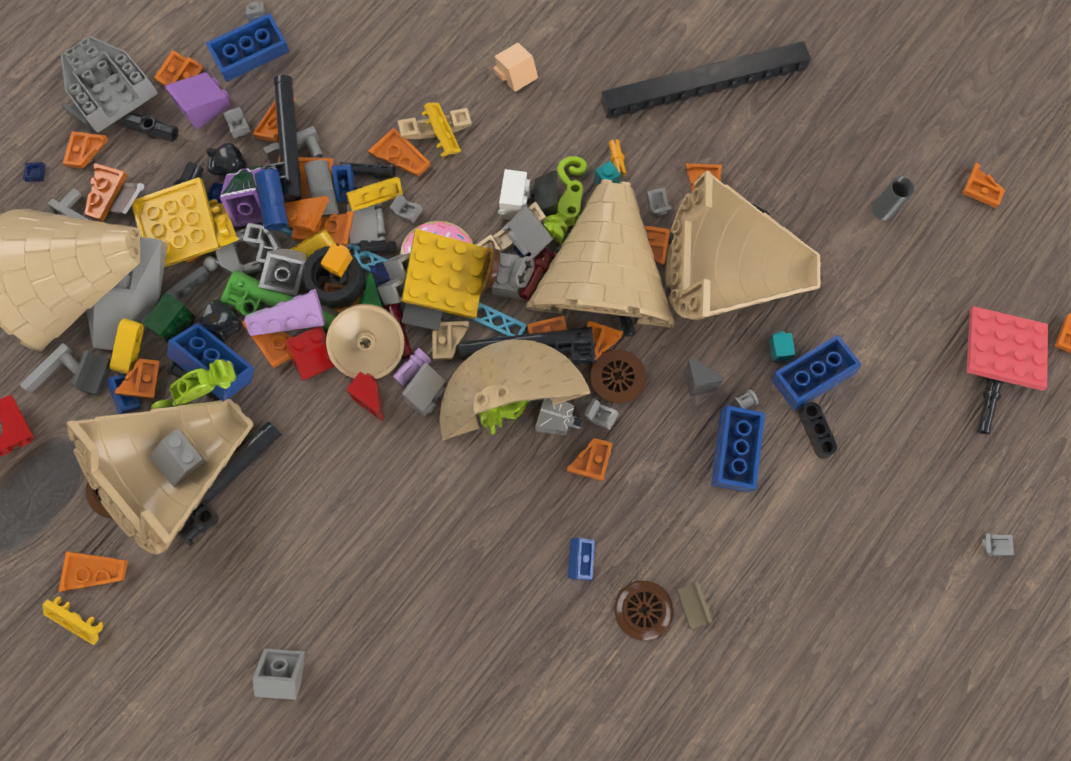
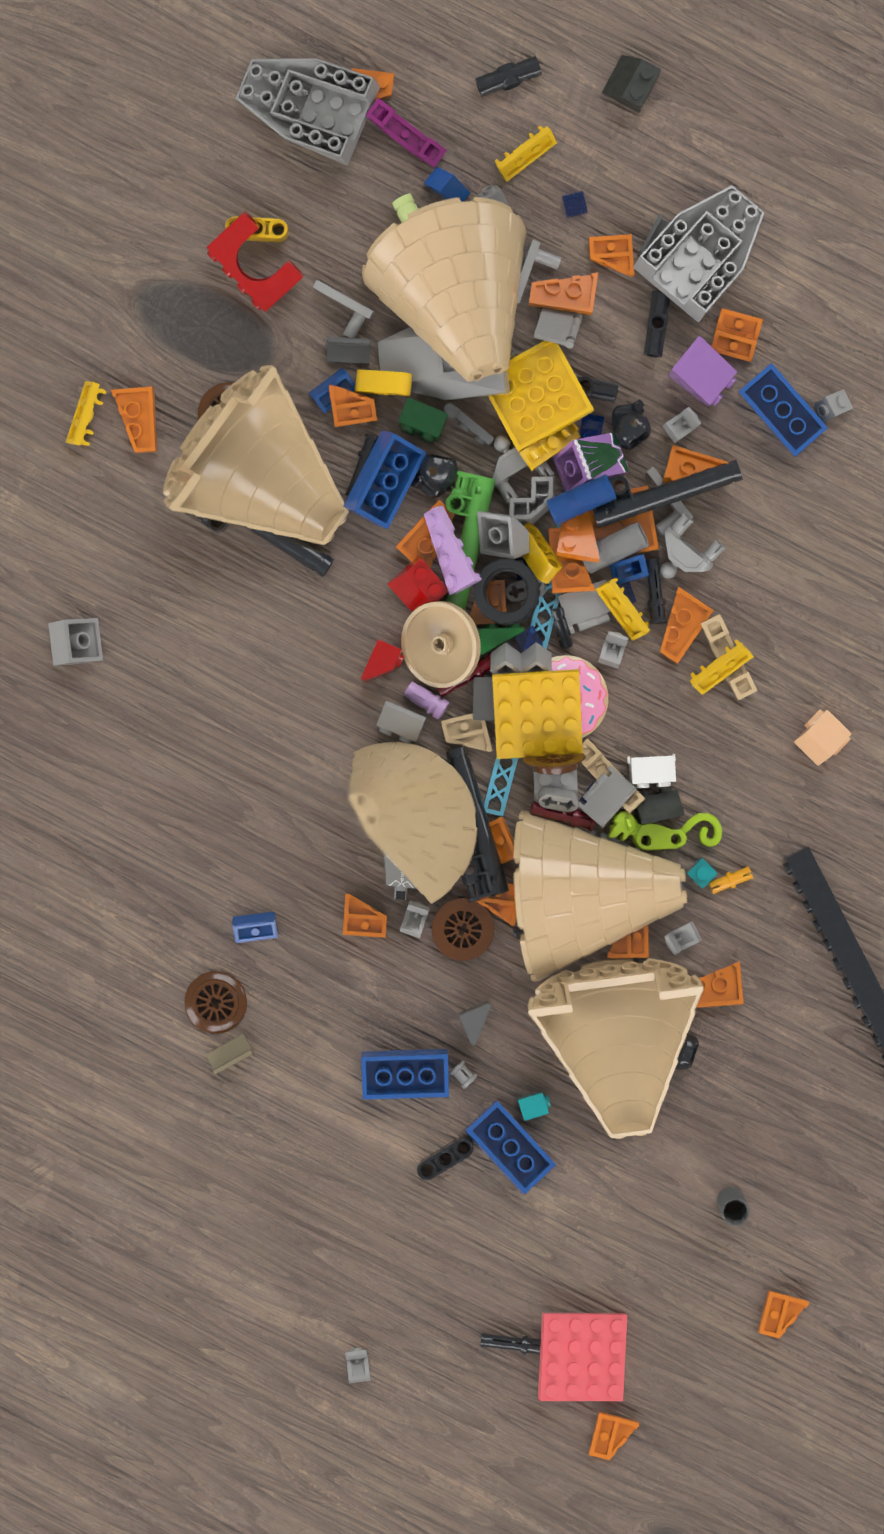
camera: 80 degrees right, 15 degrees up
(176, 457) = (271, 475): light grey slope -> none
(196, 385) = (364, 501): lime animal -> none
(337, 259) = (518, 596): light orange brick -> none
(341, 141) = (685, 555): none -> light grey connector

